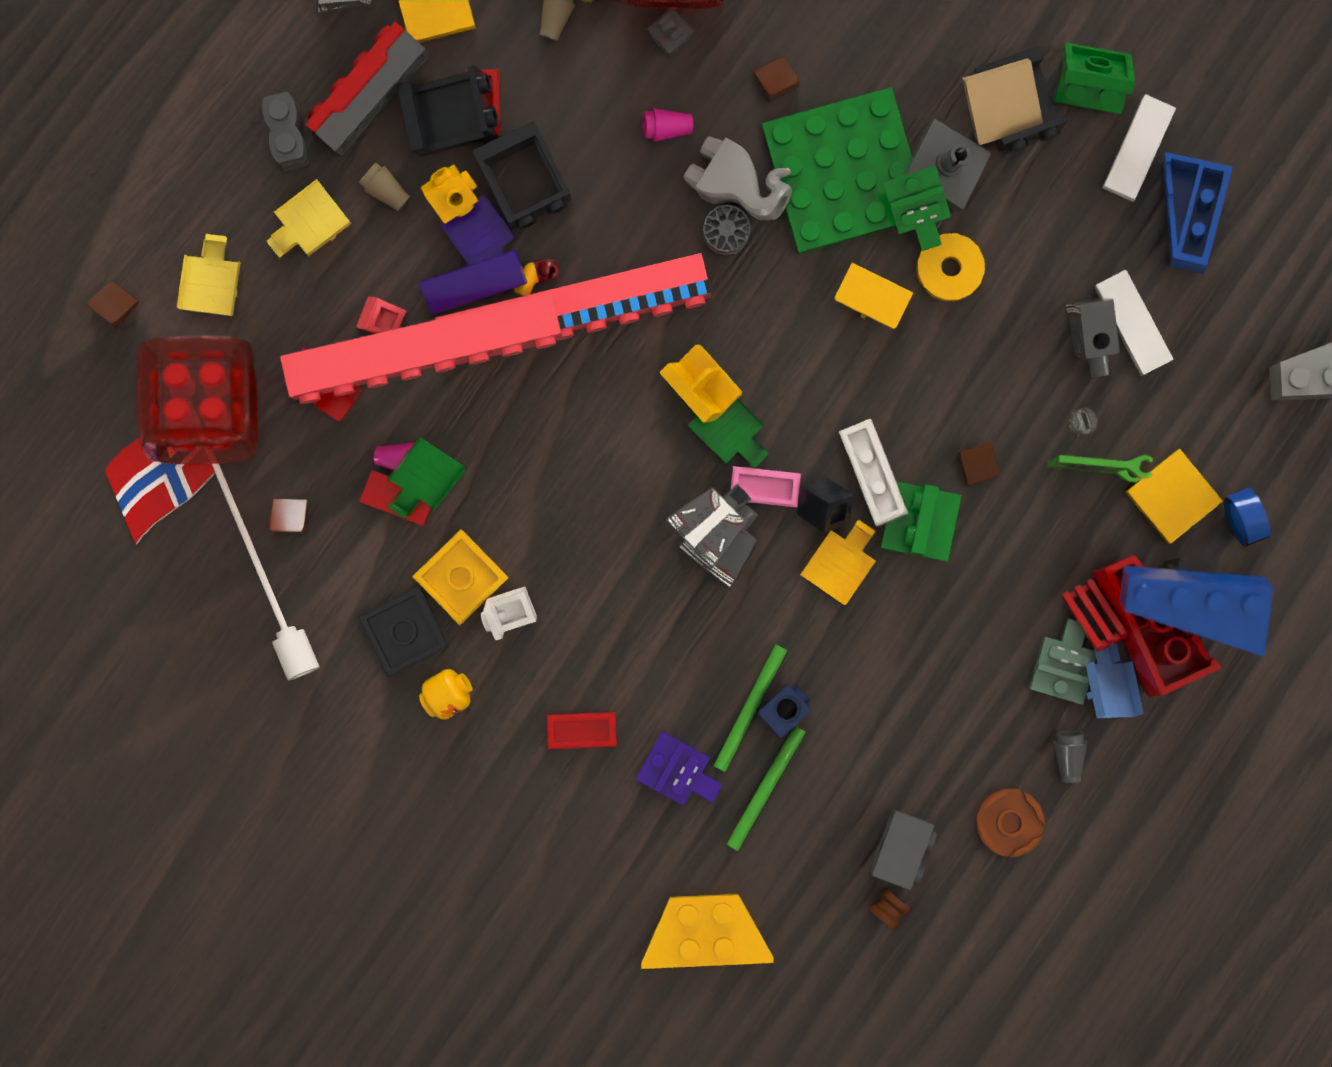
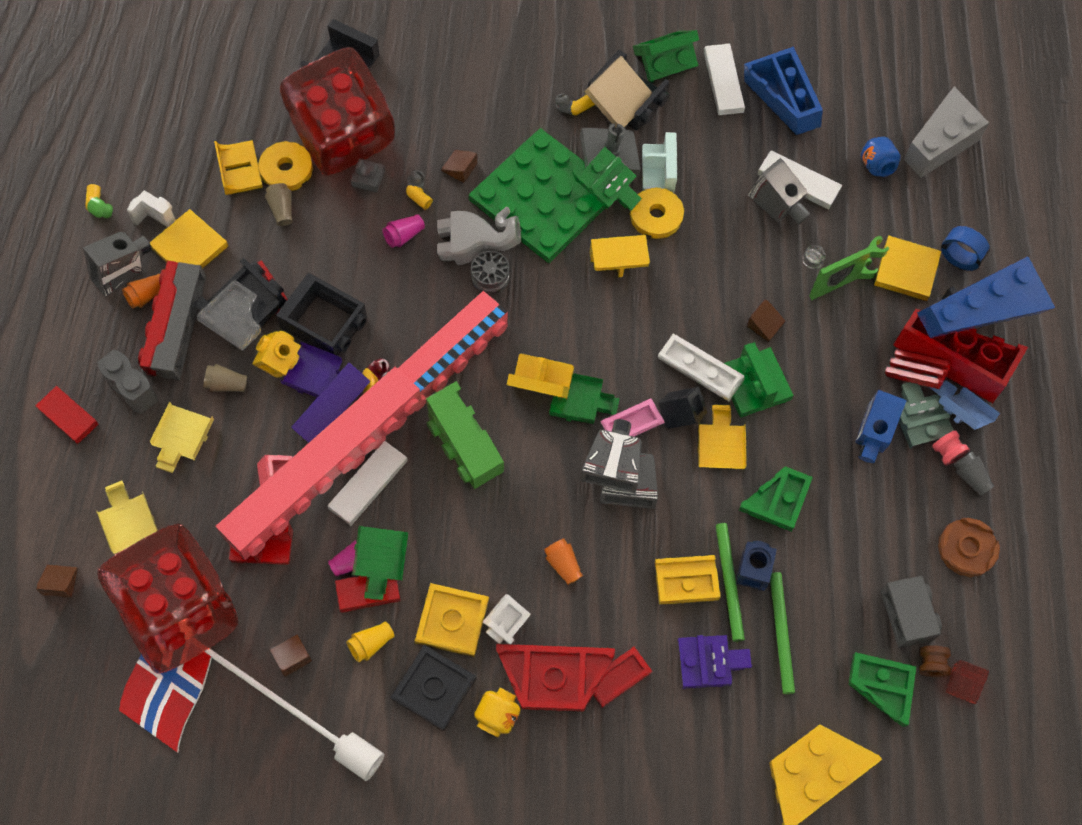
camera: 35 degrees left, 20 degrees down
(209, 128) = (66, 415): none -> red tile
(356, 32) = (141, 291): none -> orange cone
(369, 550) = (369, 641): none -> yellow cone
(425, 123) = (231, 315): none -> clear tile
(462, 387) = (367, 483): none -> white tile
(521, 693) = (554, 675): none -> red wing
(581, 402) = (463, 437): none -> bright green wedge
(602, 587) = (563, 560): none -> orange cone
(708, 681) = (687, 579): none -> yellow plate
(709, 82) = (415, 187): none -> yellow arm
(826, 898) = (884, 684): none -> green wing
(856, 658) = (779, 499): none -> green wing
(907, 945) = (967, 681): none -> clear red slope
(943, 78) = (572, 107): none -> arm
(991, 212) = (660, 164): none -> light aqua panel
(1019, 643) = (880, 417): none -> blue torso
(1065, 716) = (950, 448): none -> coral wheel
(1240, 352) = (880, 156): none -> blue head

